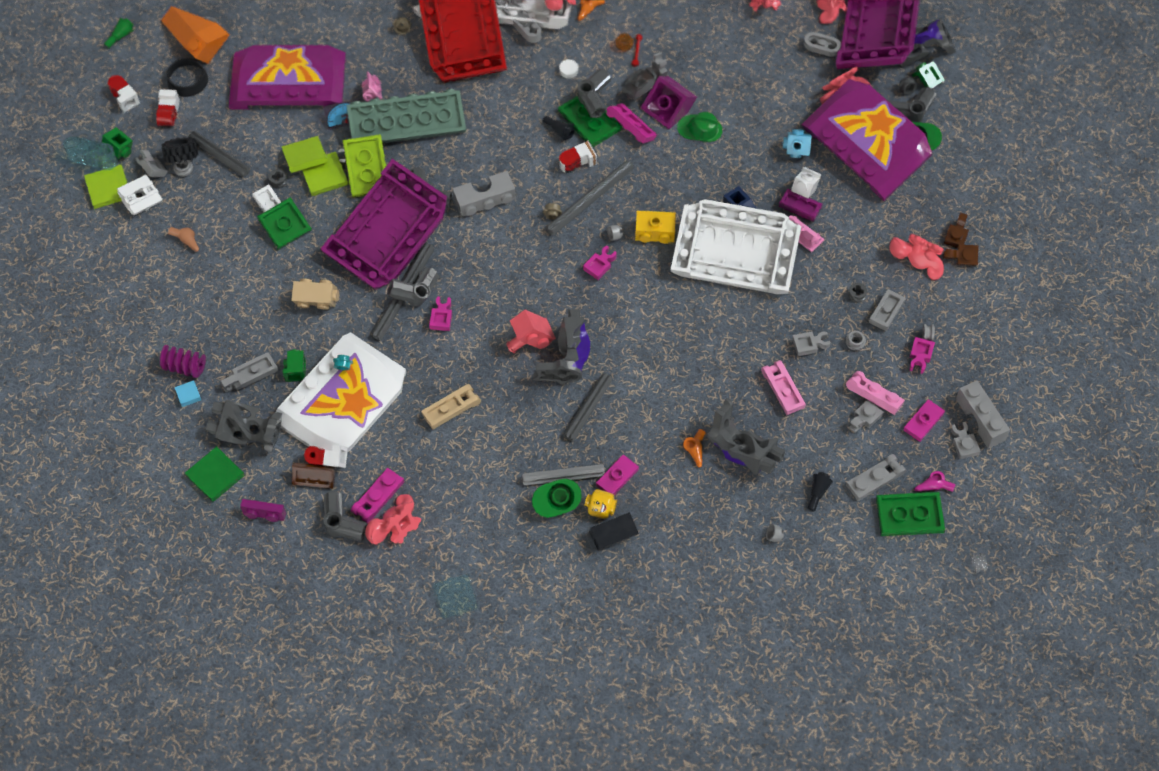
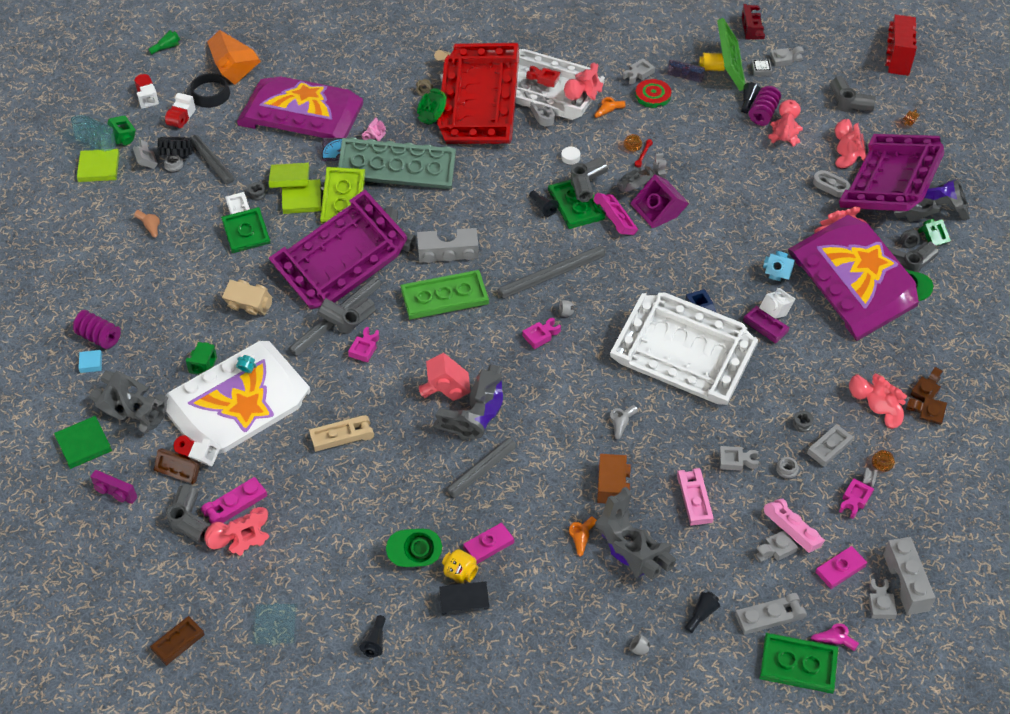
camera: 15 degrees right, 10 degrees down
(141, 185) = (127, 169): white piece -> none
(249, 372) = (156, 355): light grey hinge -> none
(377, 633) = (177, 640): none -> reddish brown plate
(418, 47) = (431, 106): none -> green tile
(497, 245) = (444, 294): none -> bright green plate
(548, 592) = (373, 642): none -> black cone
(552, 211) = (509, 274): dark tan plate -> none
(570, 473) = (440, 528): light grey axle -> none
(576, 157) = (551, 232): leg -> none
(655, 226) = (608, 311): yellow brick -> none
(697, 330) = (621, 418): none -> light grey animal
(700, 127) = (685, 232): green piece -> none
(707, 389) = (612, 476): none -> dark orange brick
(807, 237) = (764, 355): bright pink hinge -> none
(936, 308) = (885, 456): none -> clear orange plate

